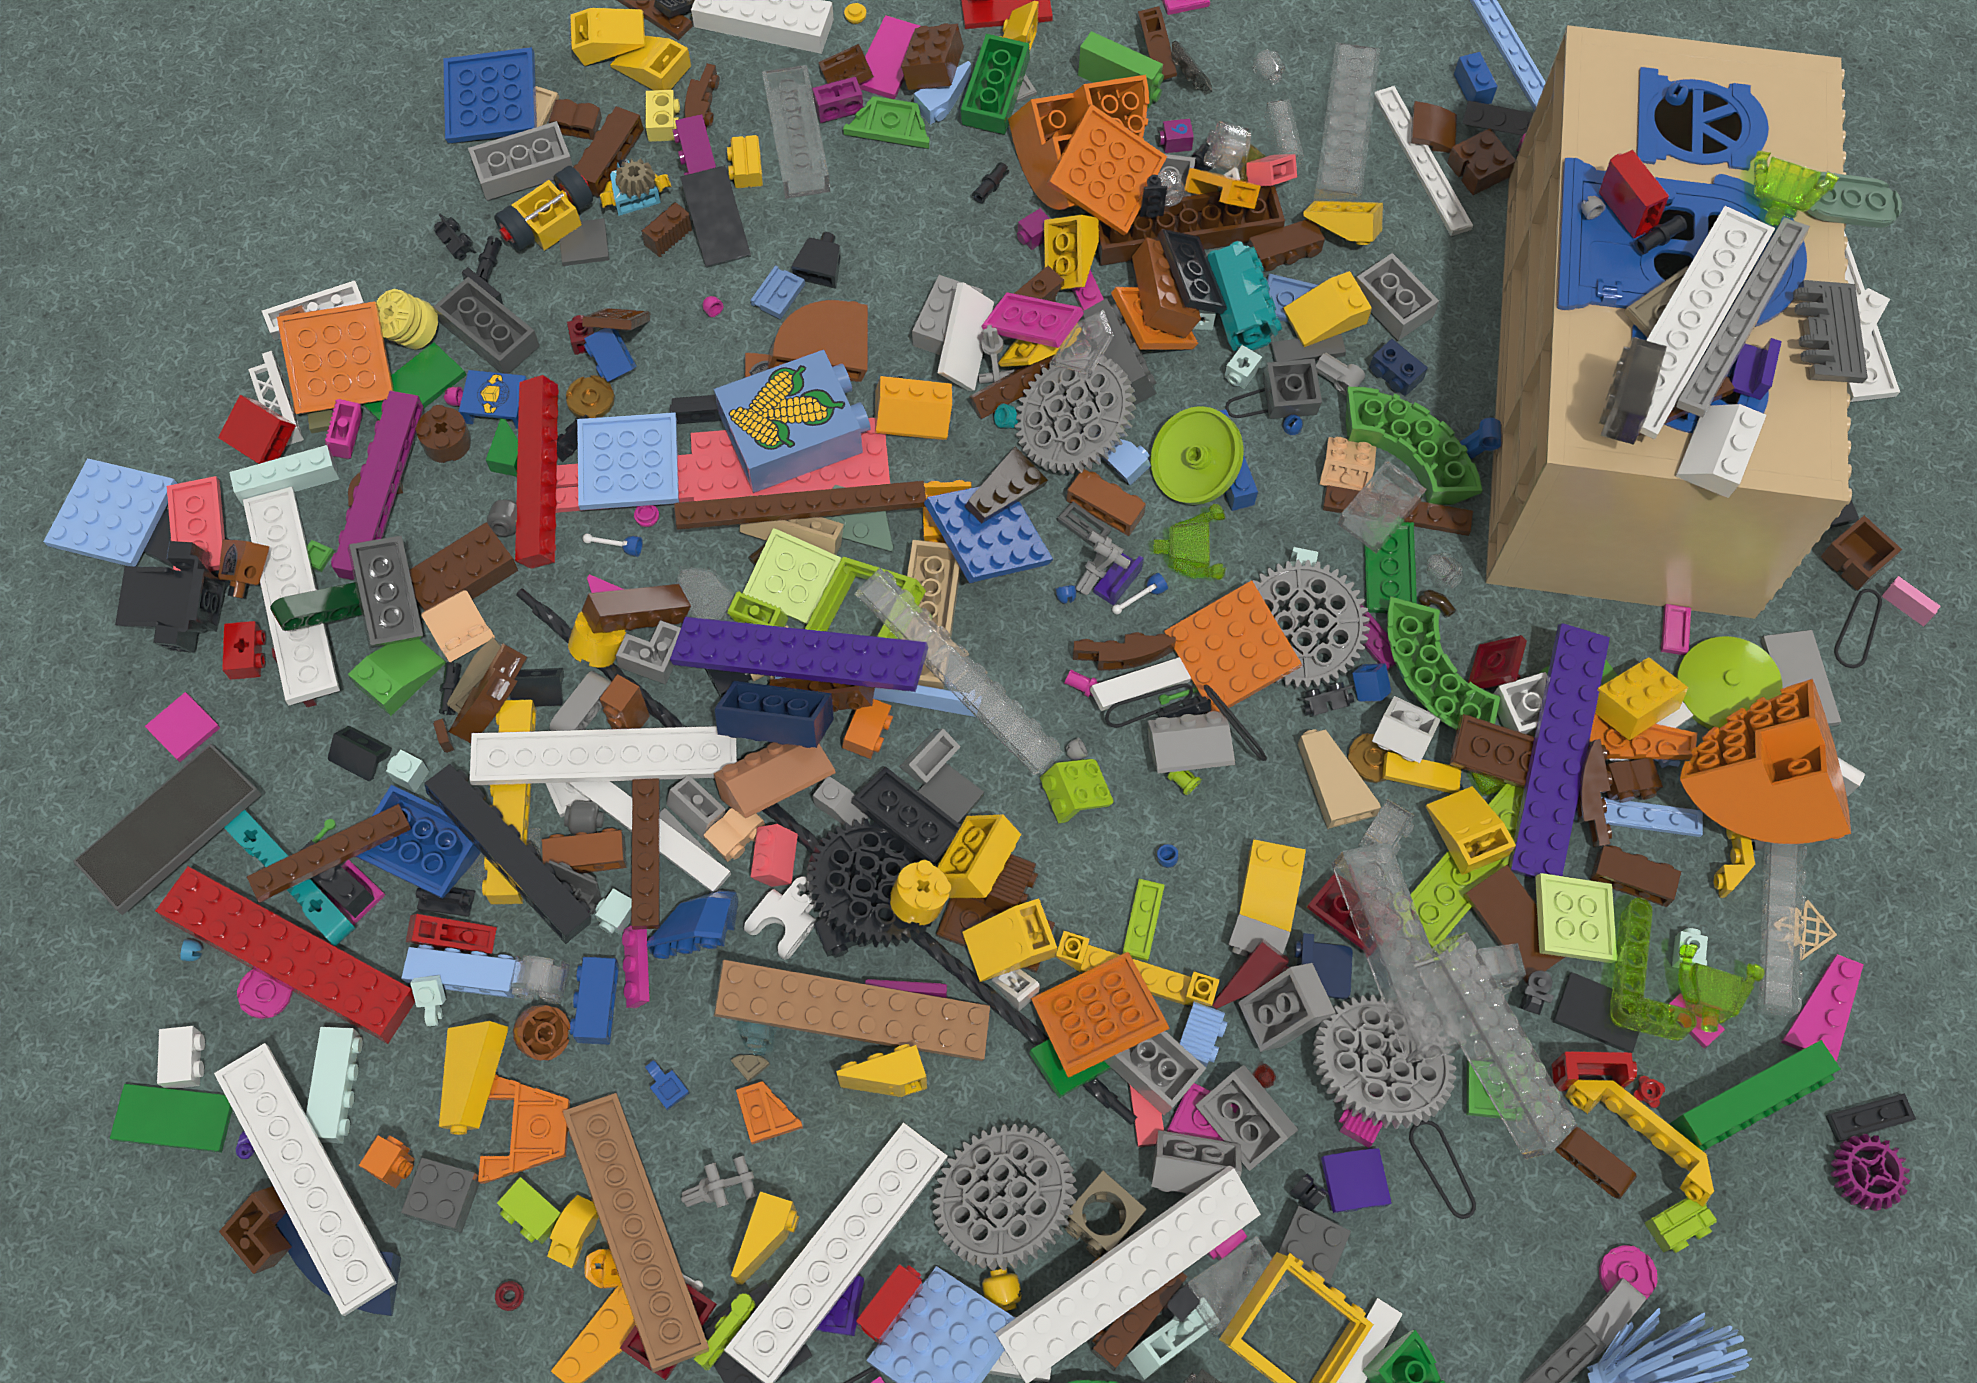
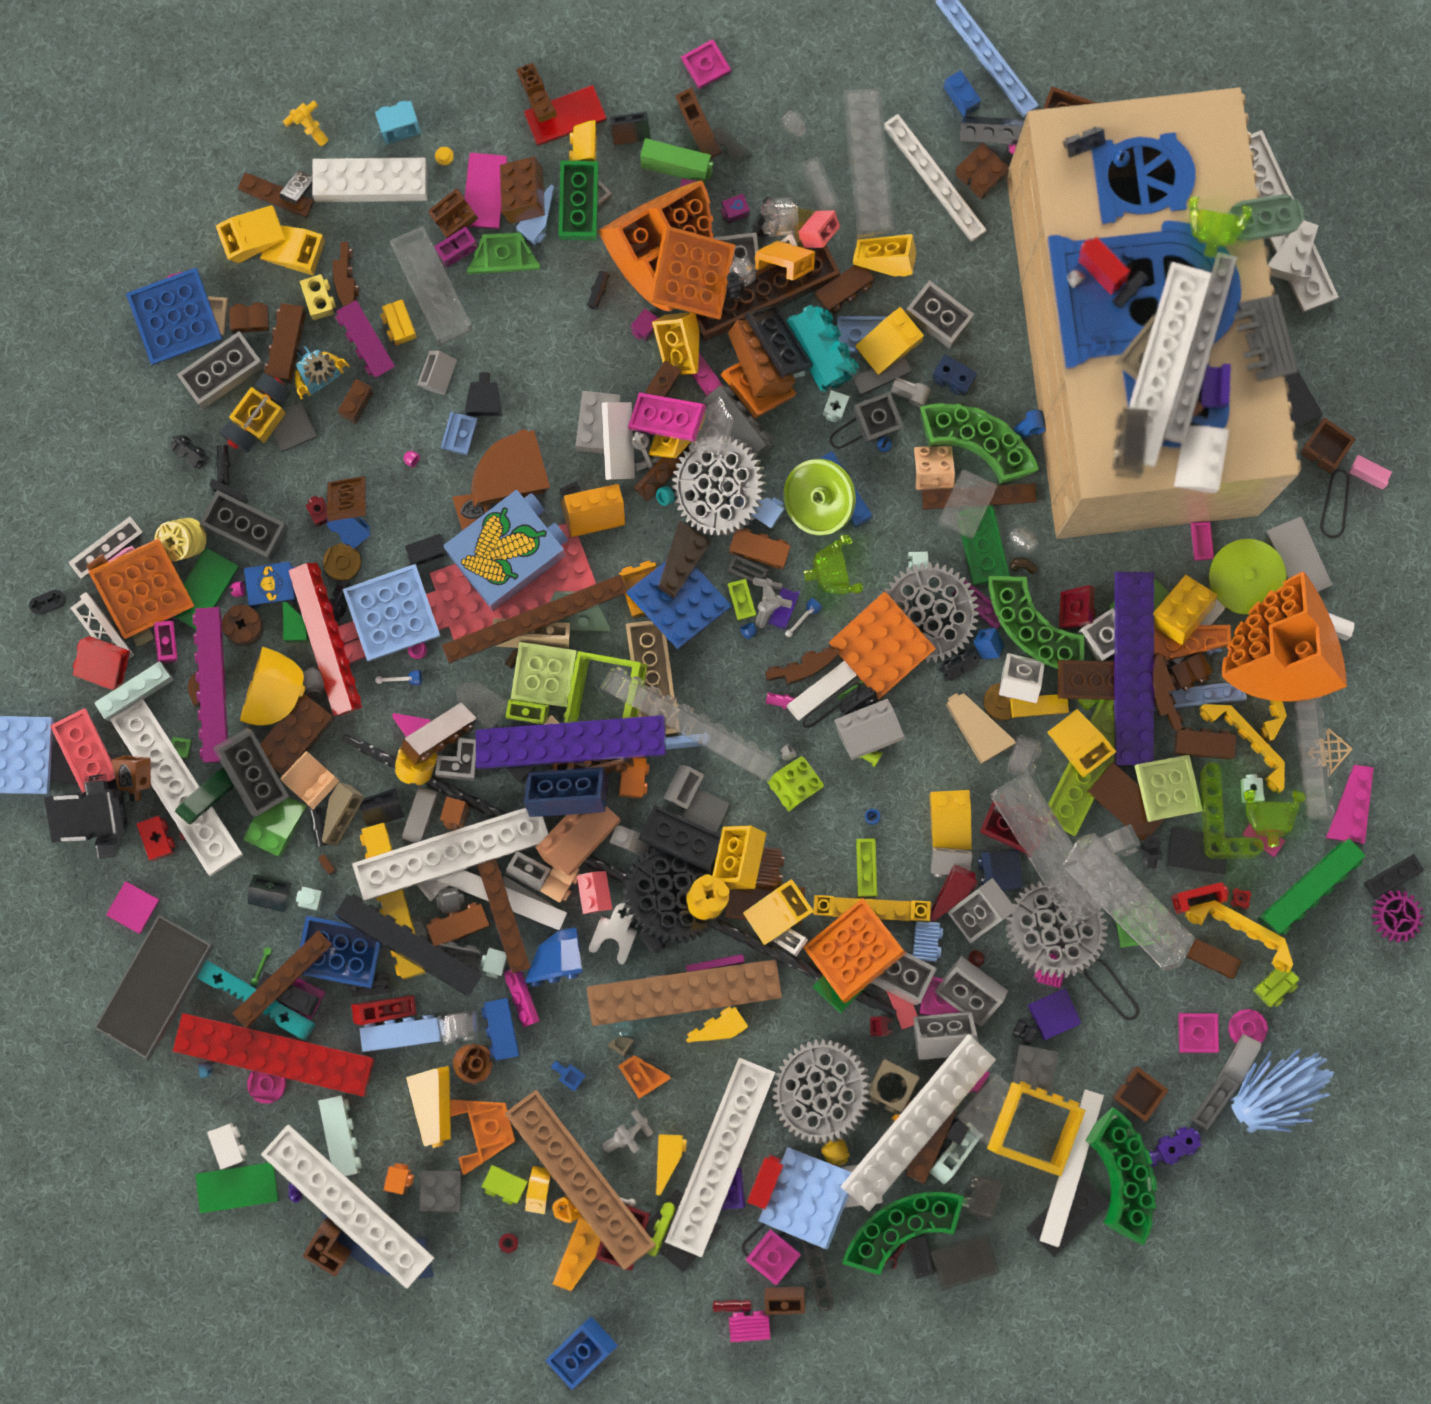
camera: 15 degrees left, 15 degrees up
(224, 357) = (48, 606): none -> black beam
(429, 994) = (385, 1057): light aqua plate -> none
(447, 508) = (273, 690): none -> yellow brick
(490, 694) = (353, 829): reddish brown slope -> none
(715, 216) = (391, 382): black tile -> none
(773, 223) = (437, 372): none -> light grey brick
(1067, 555) = (741, 599): none -> lime plate
(1073, 32) = (630, 128): none -> black panel
(1107, 1132) = (879, 1026): none -> dark red tile
(1212, 694) = (895, 707): black piece -> none
(1433, 126) = (937, 146): reddish brown slope -> none
(1455, 1323) = (1139, 1094): none -> reddish brown piece
(1555, 1262) = (1198, 1033): none -> dark pink tile
(1634, 66) = (1091, 139): none -> black hinge
(1652, 837) = (1275, 780): none -> yellow slope

